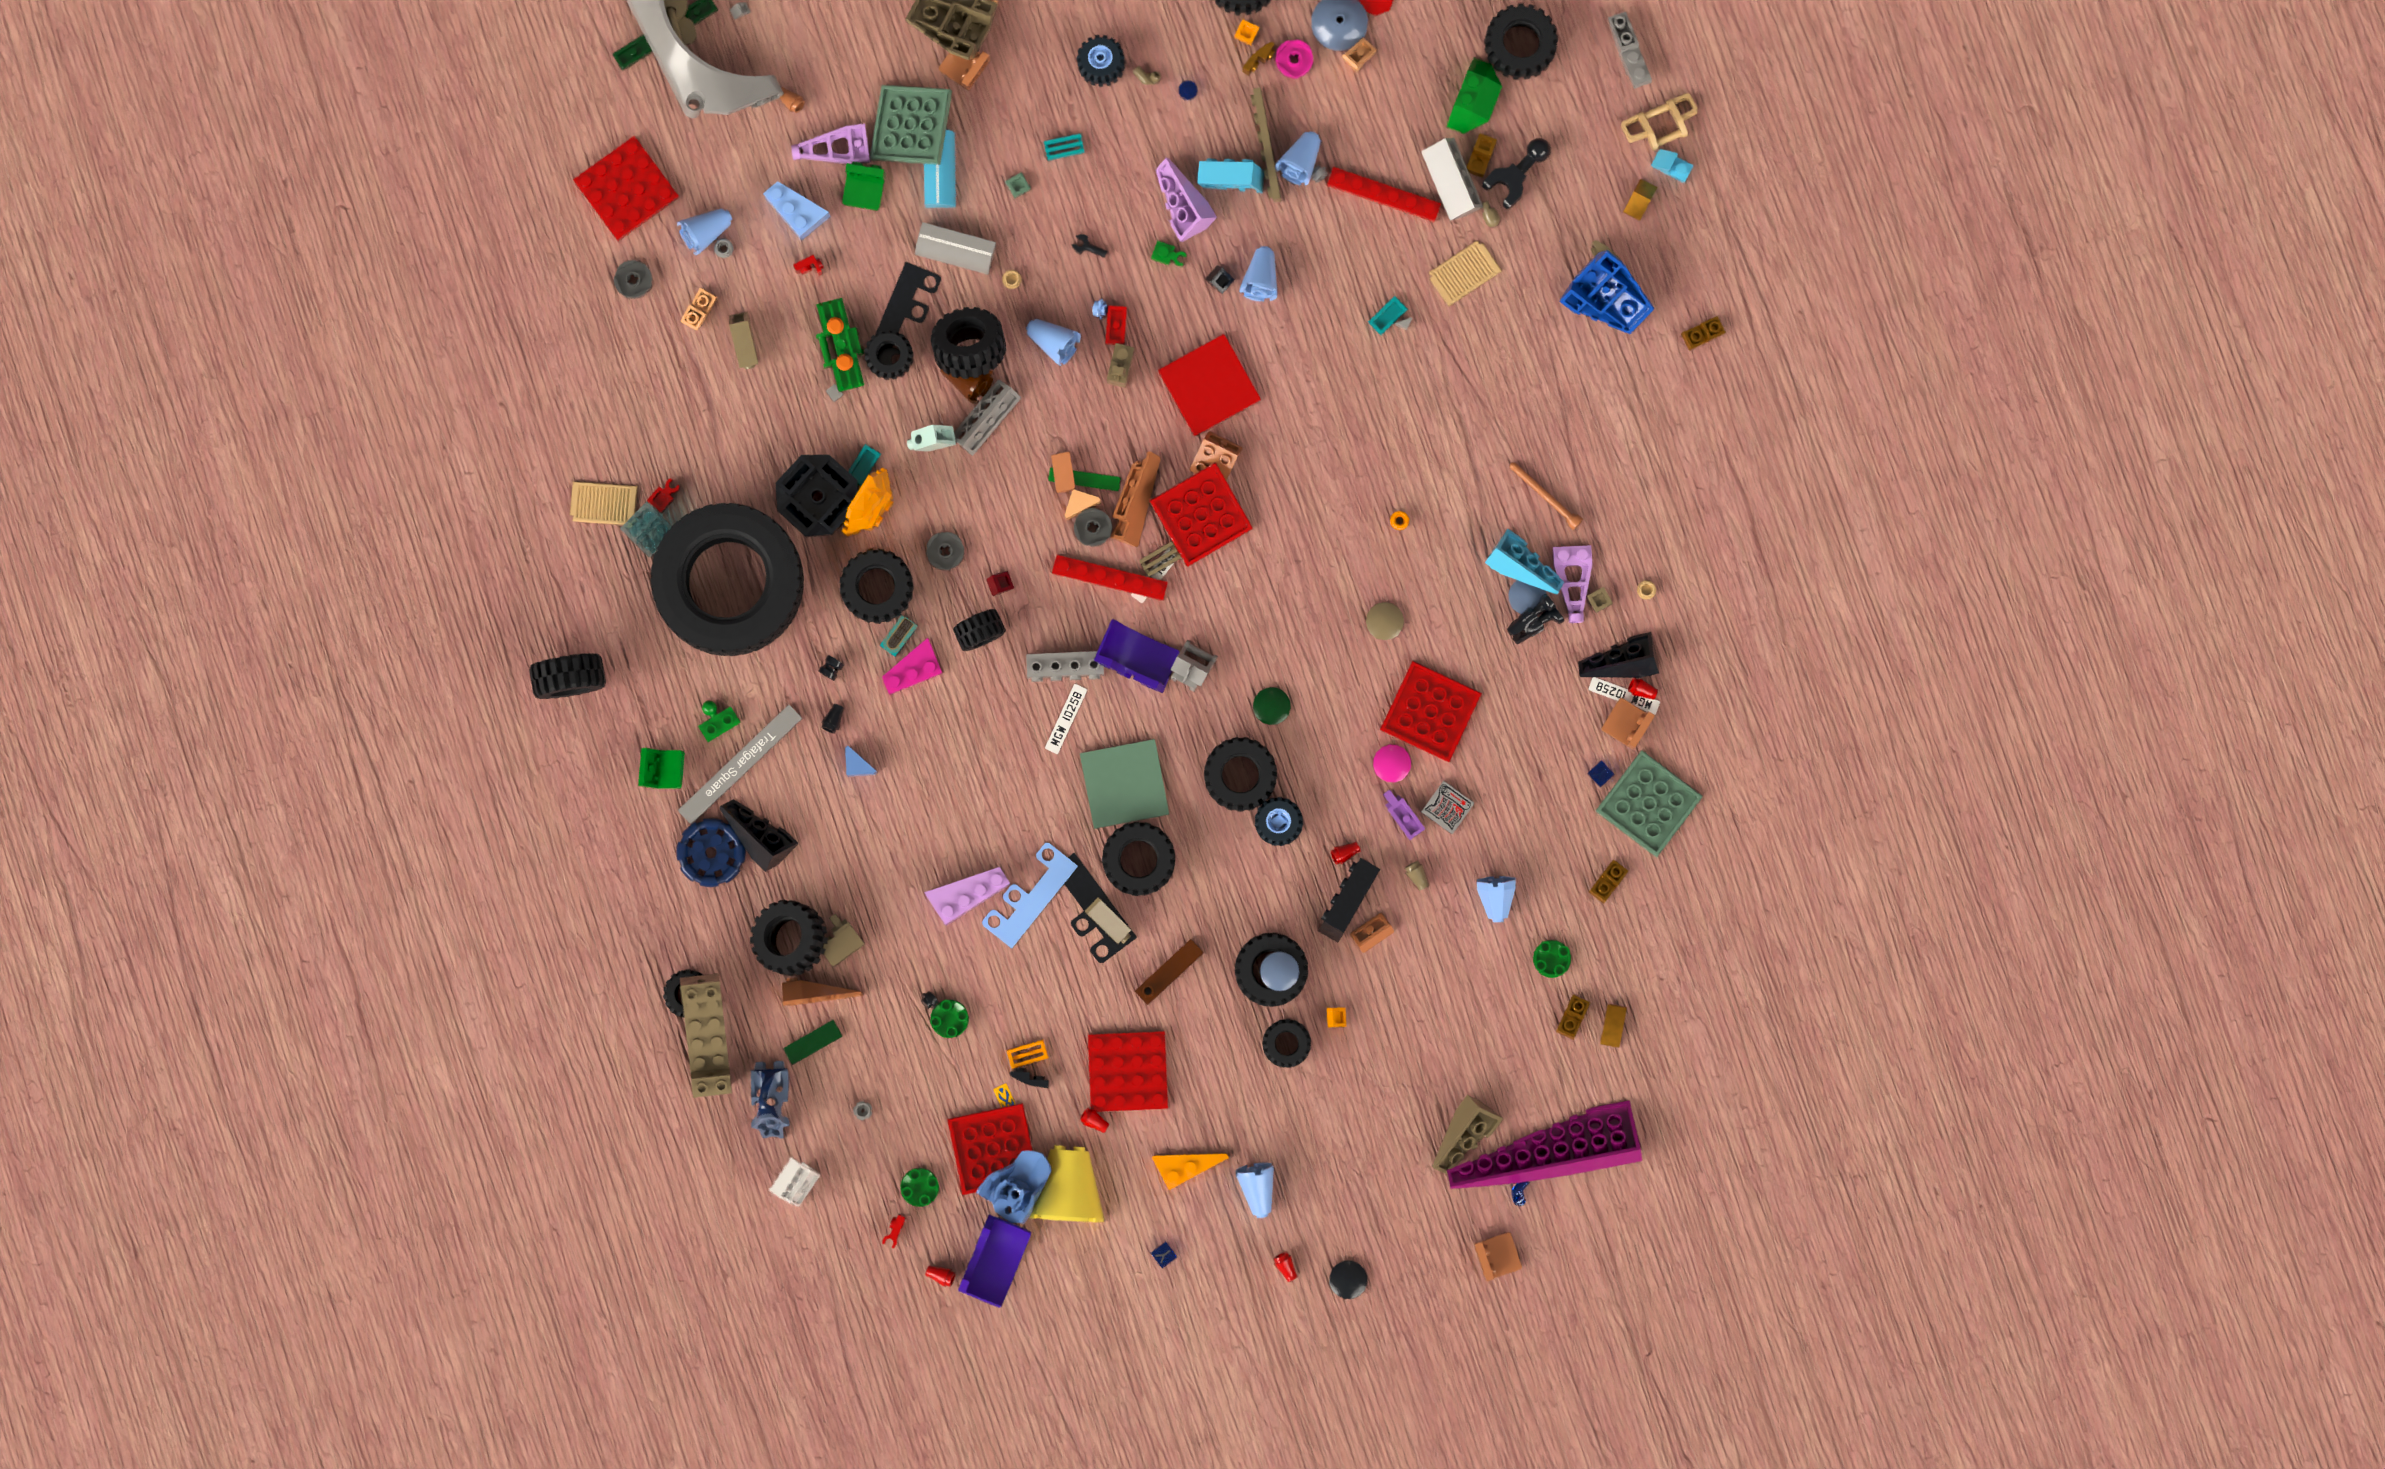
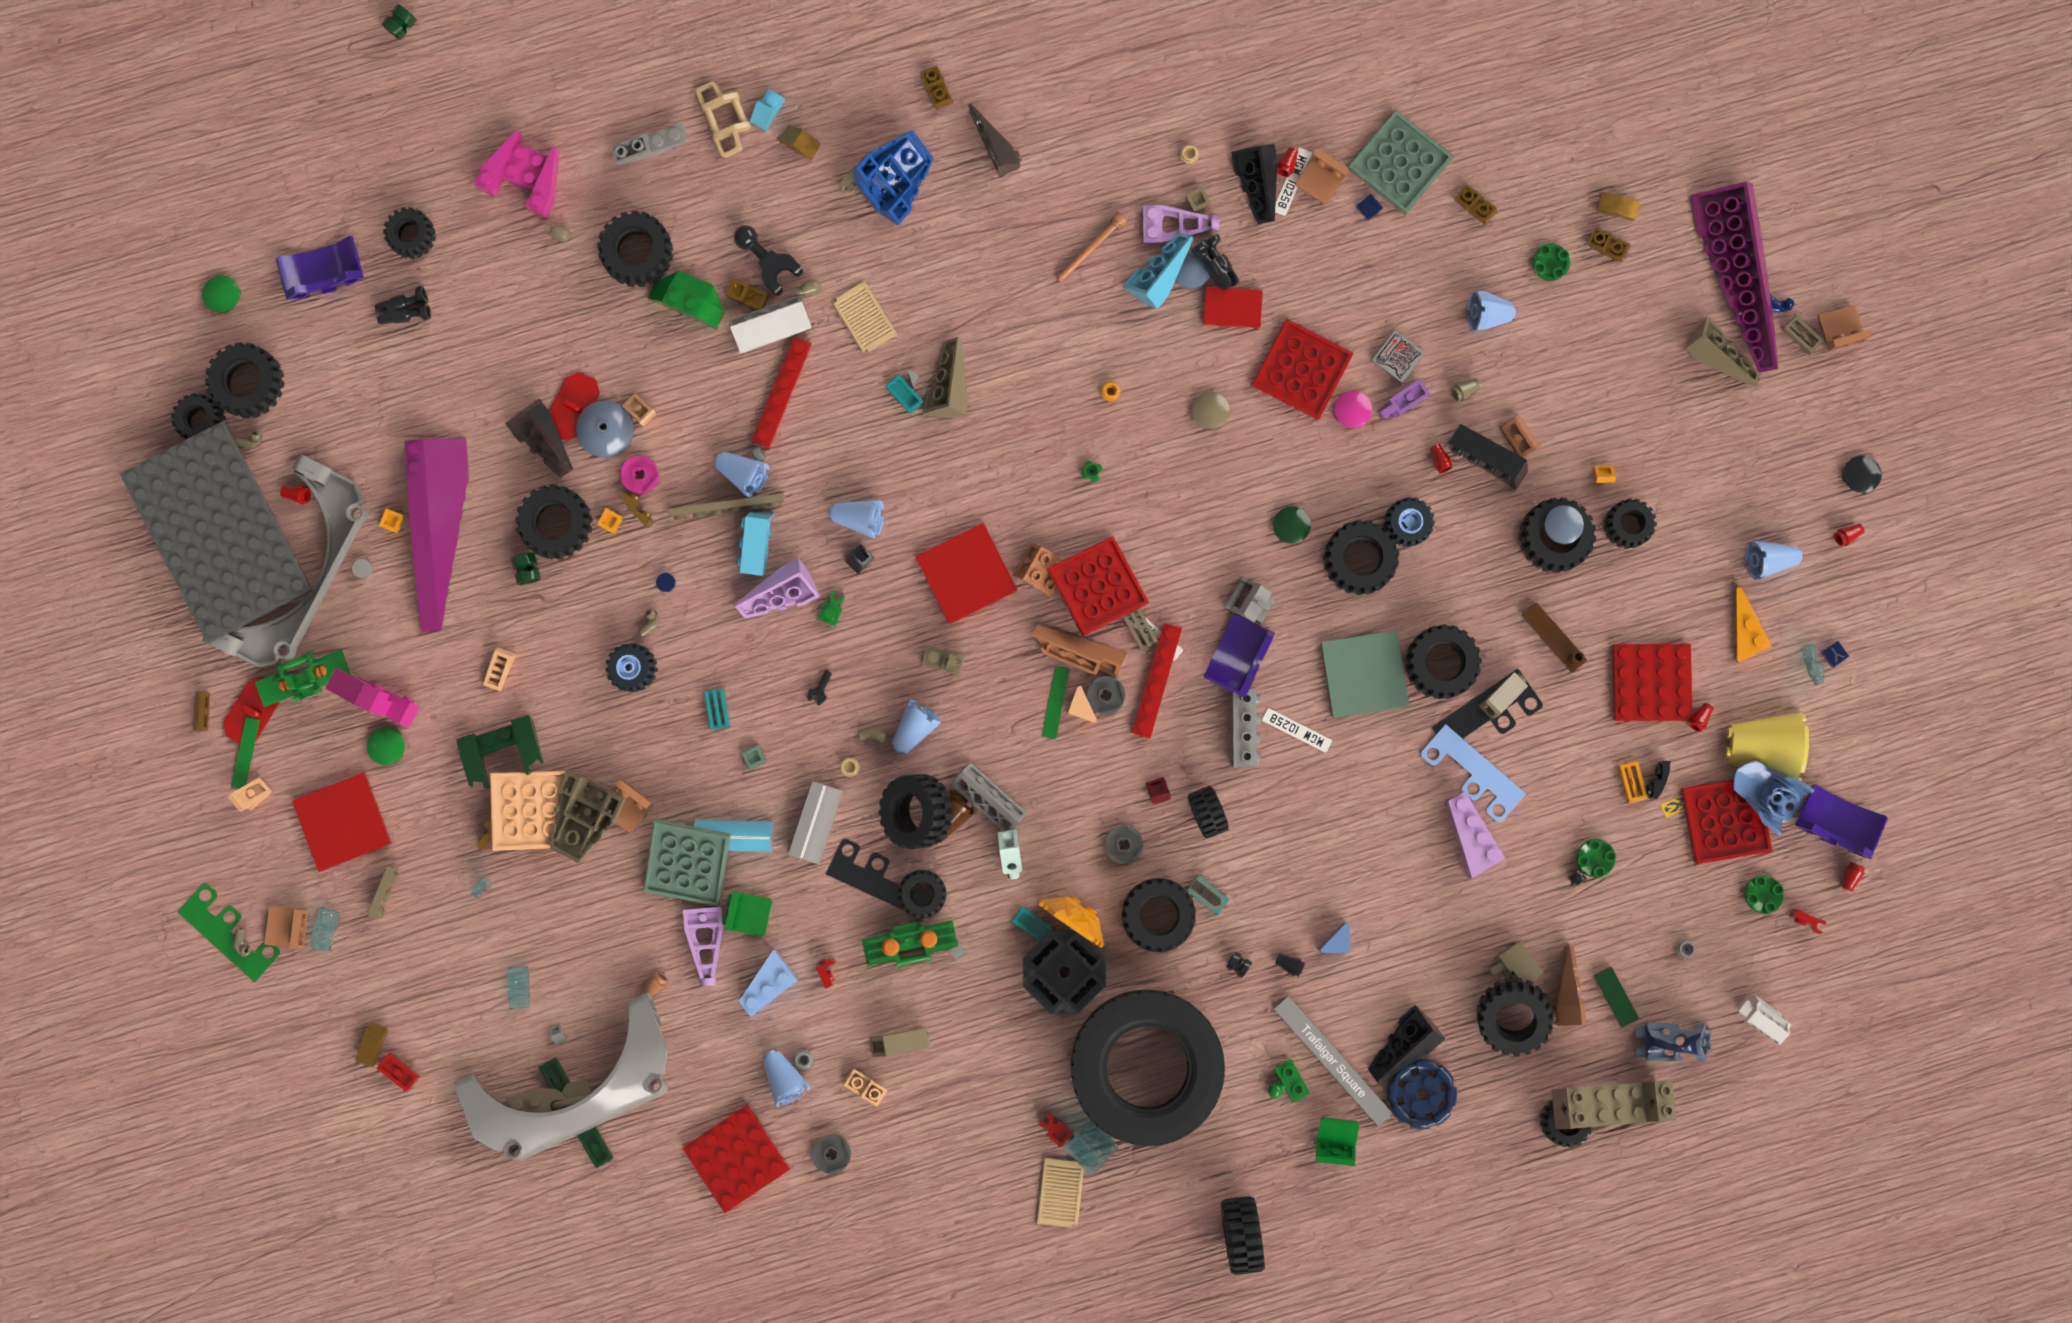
camera: 80 degrees left, 0 degrees up
(913, 669) = (1242, 881): dark pink wing -> none
(1046, 302) = (874, 733): none -> dark tan arm
(1063, 472) = (1049, 722): nougat slope -> none
(1100, 309) = (884, 679): light blue plate -> none
(1116, 325) = (902, 663): red plate -> none
(1146, 1234) = (1815, 671): none -> clear light blue slope
(1316, 499) = (1097, 468): none -> green plate
(1394, 359) = (949, 389): none -> dark tan wedge
(1478, 1229) = (1798, 340): none -> dark tan tile
(1490, 639) = (1233, 307): none -> red tile
(1638, 398) = (999, 149): none -> clear smoke wedge

